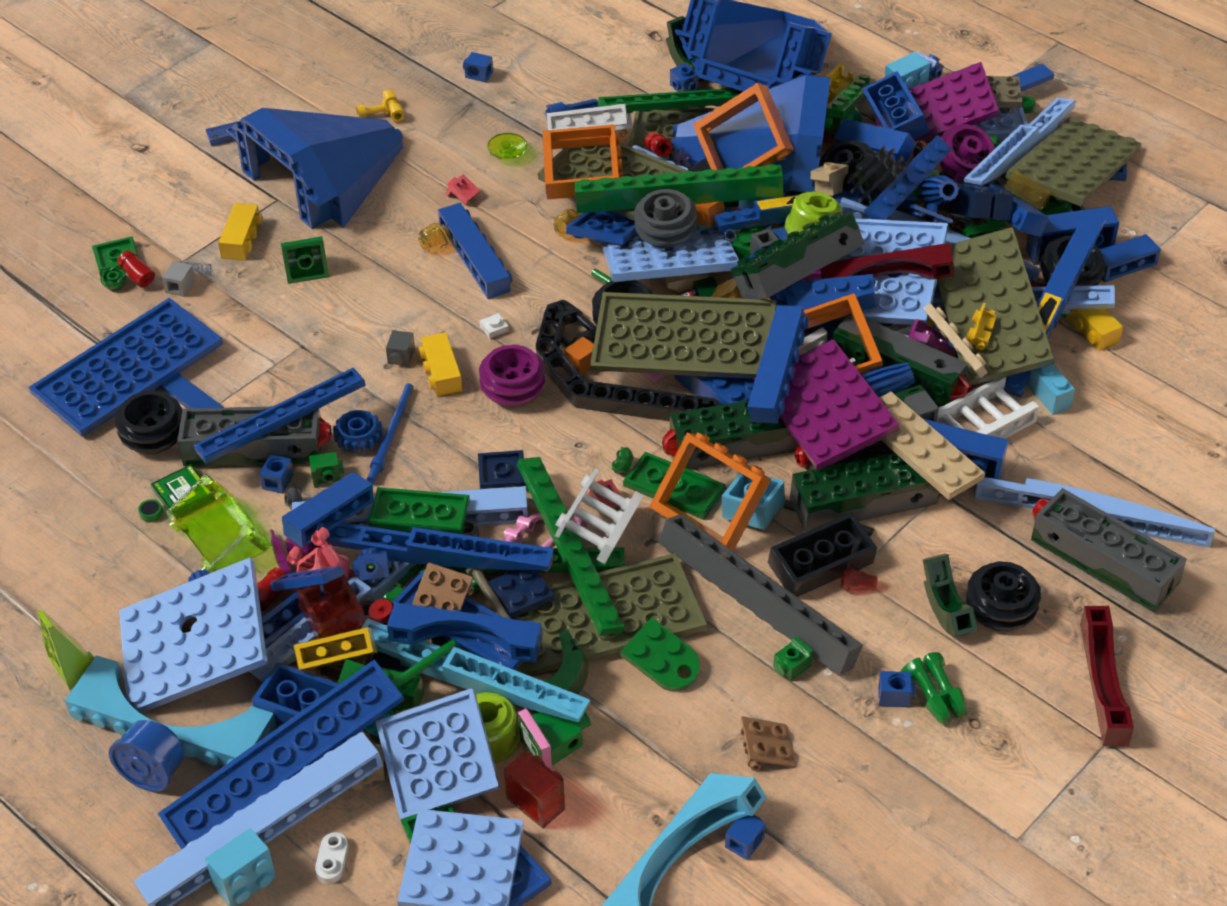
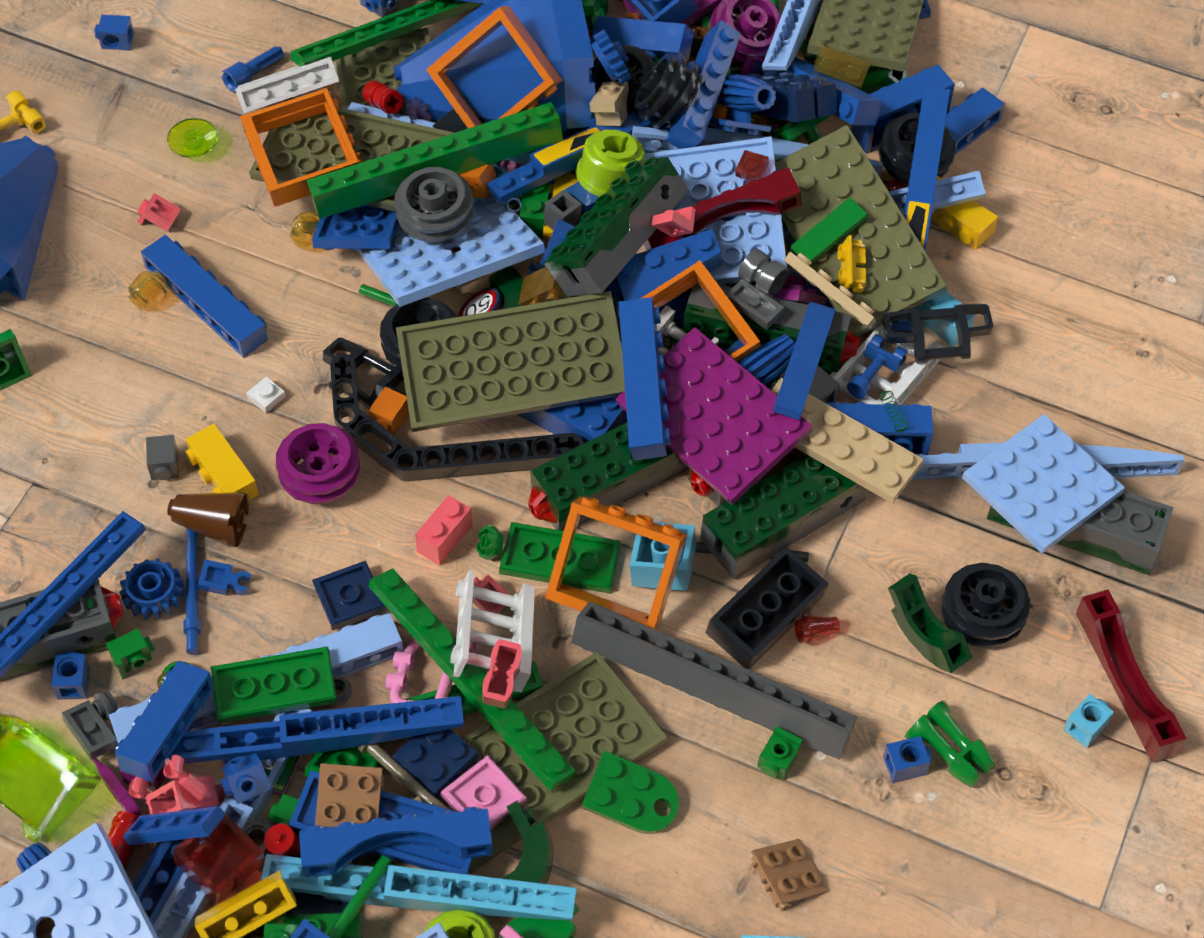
camera: 20 degrees left, 10 degrees up
(274, 507) = (89, 729): none -> dark grey plate
(410, 436) = (217, 577): none -> blue plate
(421, 392) = (212, 515): none -> reddish brown cone
(553, 619) = (485, 788): none -> bright pink tile
(590, 443) = (443, 530): none -> coral brick
(591, 536) = (500, 678): none -> coral brick
(838, 142) = (611, 57): none -> blue gear
(843, 262) = (675, 221): none -> coral bracket
(890, 337) = (755, 304): none -> dark grey plate
(904, 315) = (765, 274): none -> dark grey wheel
(912, 380) = (804, 361): none -> blue tile
(923, 238) = (752, 166): none -> clear red tile
(971, 300) = (830, 230): none -> green tile
(980, 443) = (898, 430): none -> piece
(982, 398) = (859, 385): none -> blue bar
(1059, 397) = (916, 336): none -> black bar
(1059, 700) = (1083, 729): none -> medium azure brick
(1080, 515) = (1043, 483): none -> light blue plate

